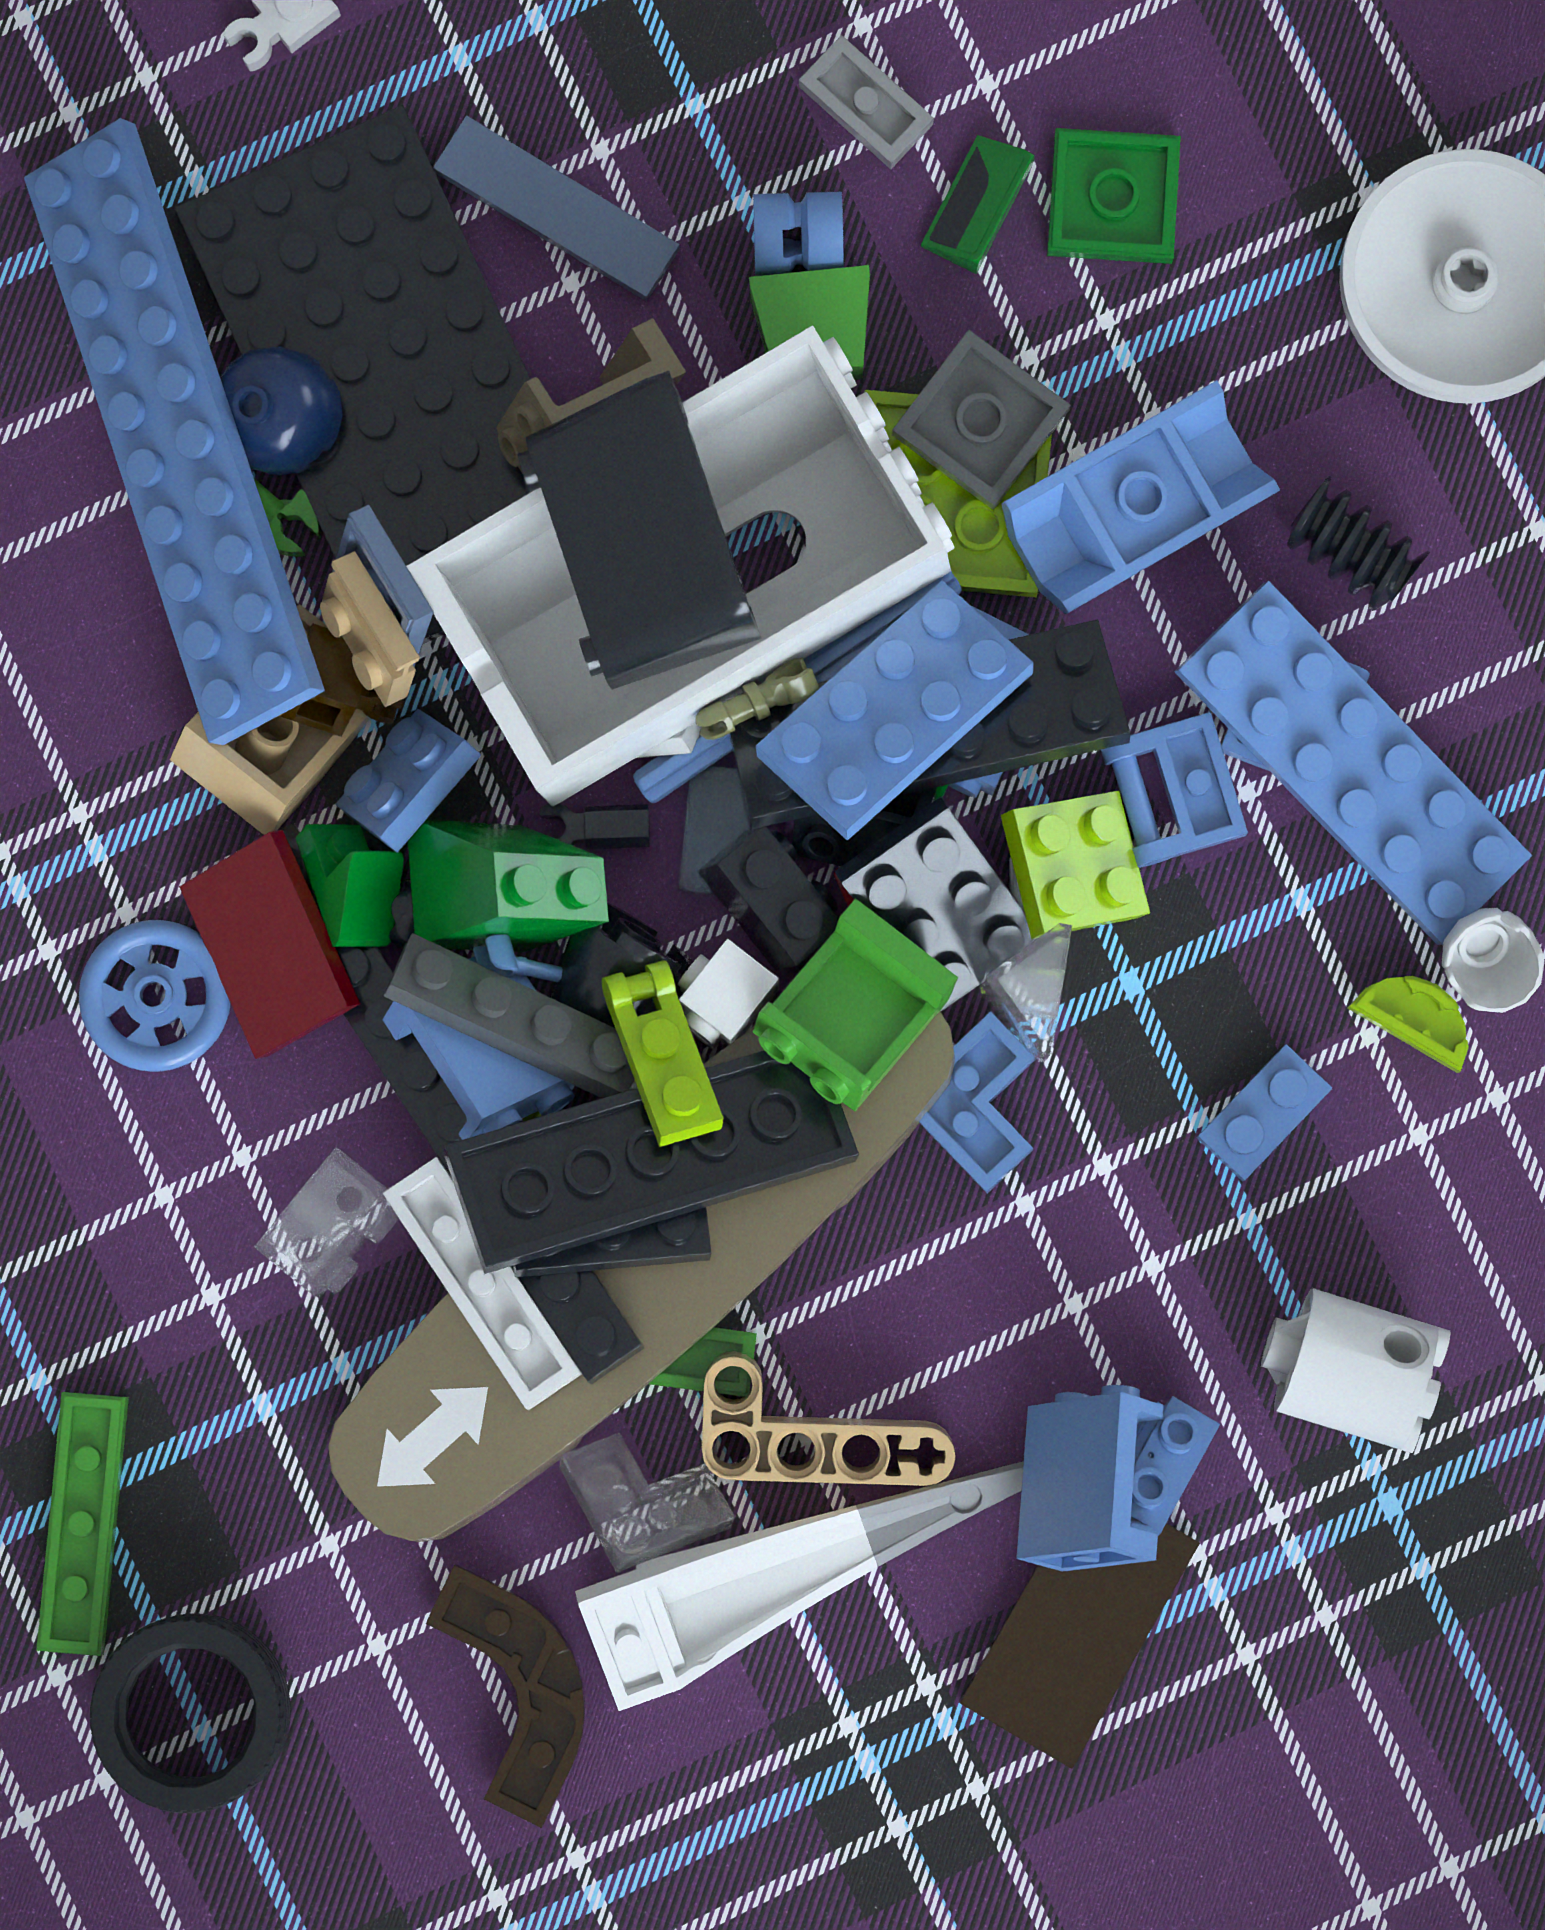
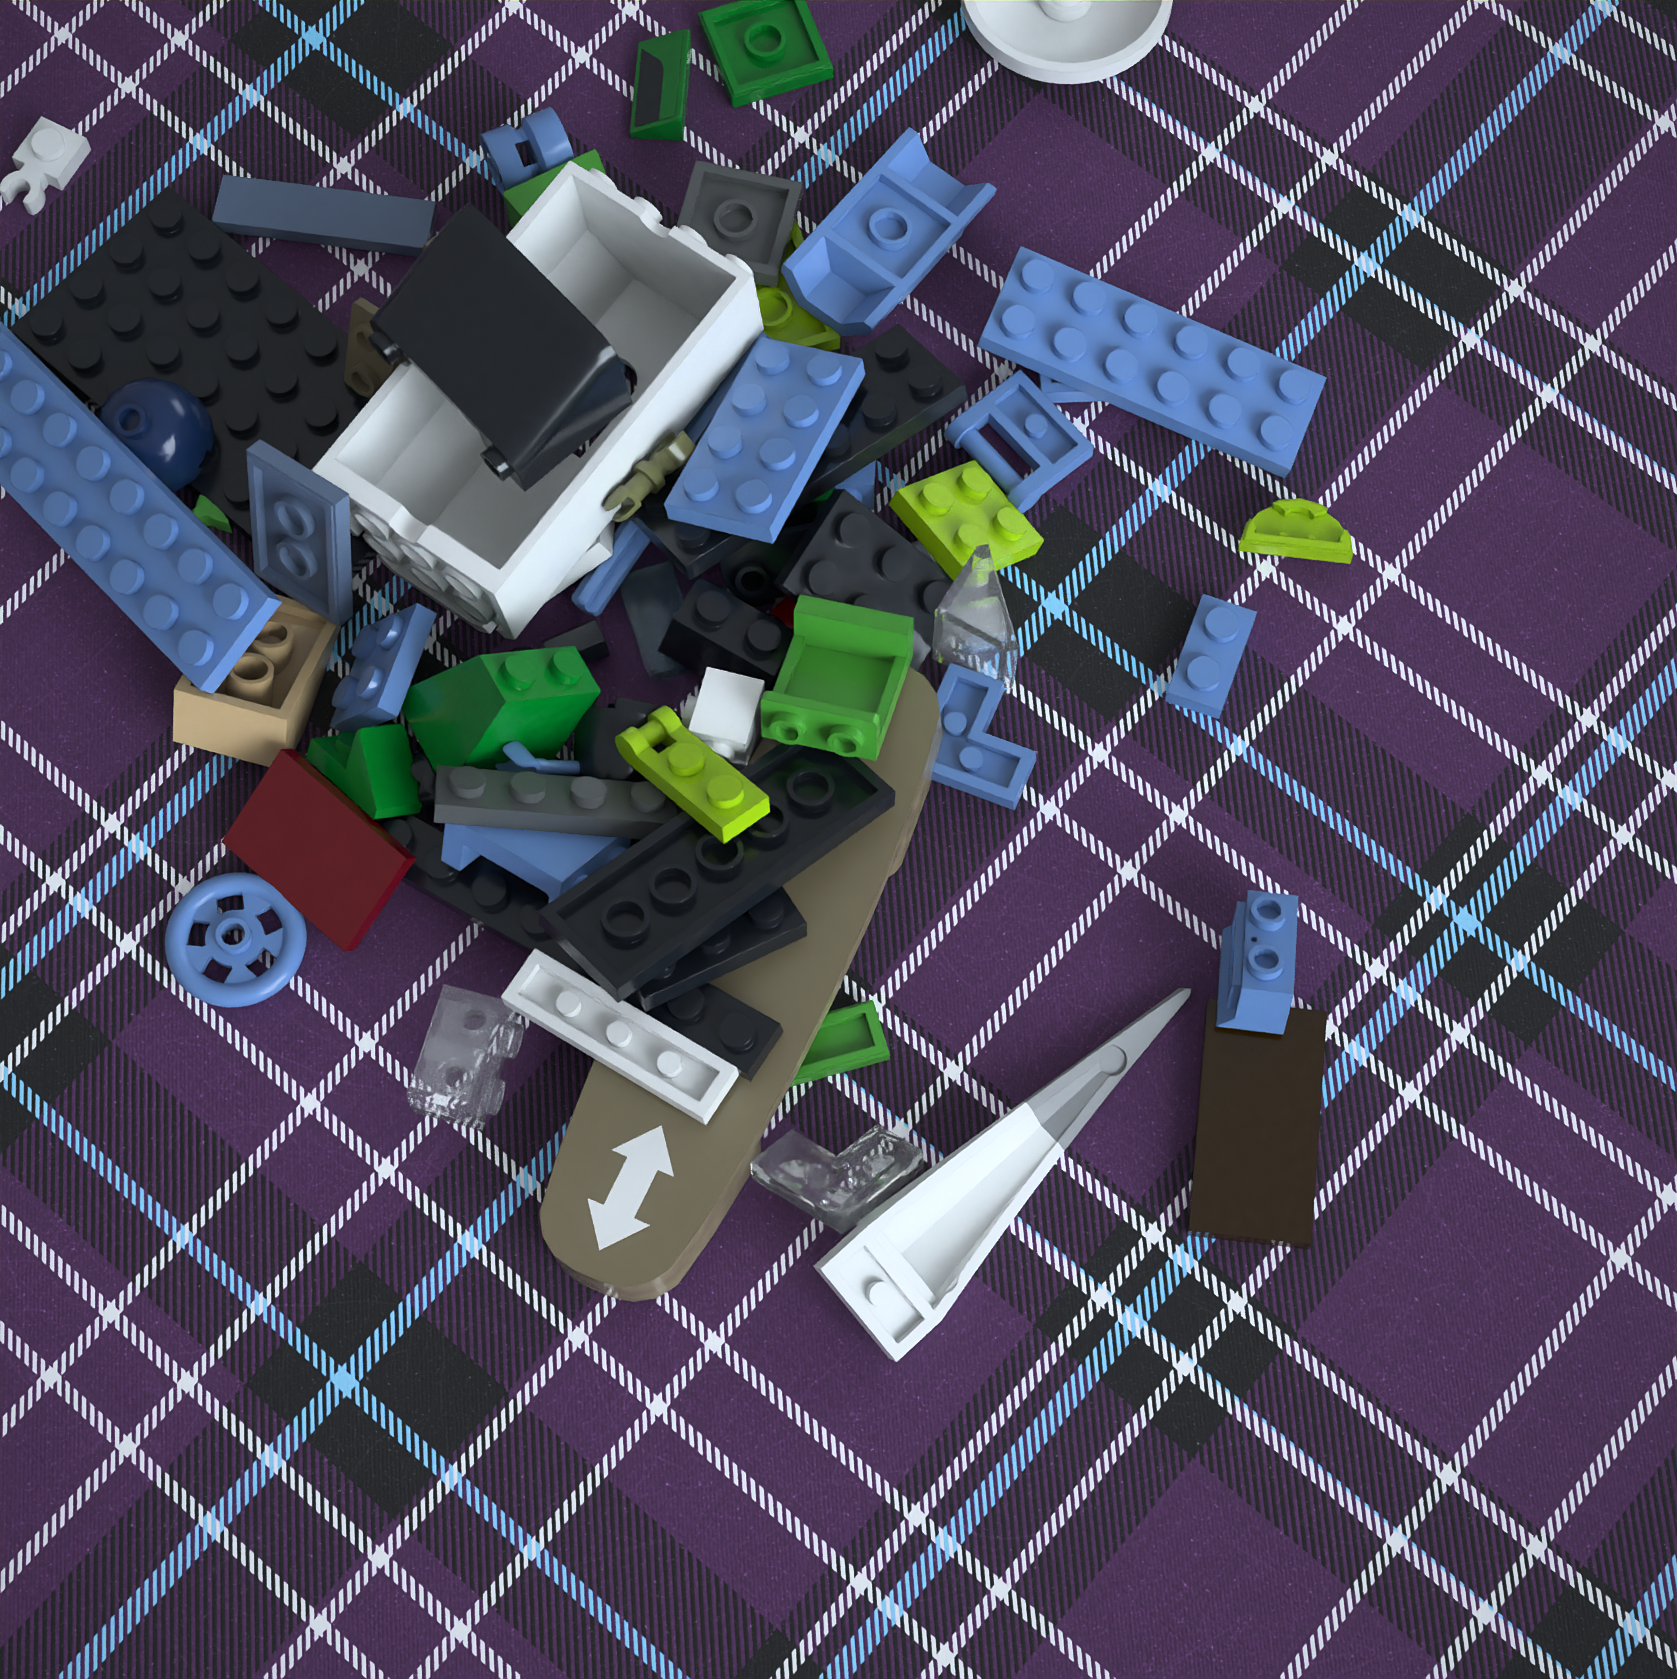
camera: 25 degrees left, 15 degrees down
(82, 1524) = (348, 1410): bright green tile -> none
(111, 1702) = (458, 1471): black tyre -> none
(343, 690) = (293, 625): dark brown brick -> none
(360, 615) = (301, 547): tan plate -> none
(544, 1681) = (815, 1361): dark brown plate -> none
(827, 1435) = (968, 1052): tan beam -> none
(866, 102) = (540, 48): light grey plate -> none
(1082, 1481) = (1210, 988): medium blue panel -> none
(1354, 546) = (1074, 208): black piece -> none
(1356, 1369) = (1387, 809): white cylinder -> none
(1493, 960) = (1336, 459): white hair -> none

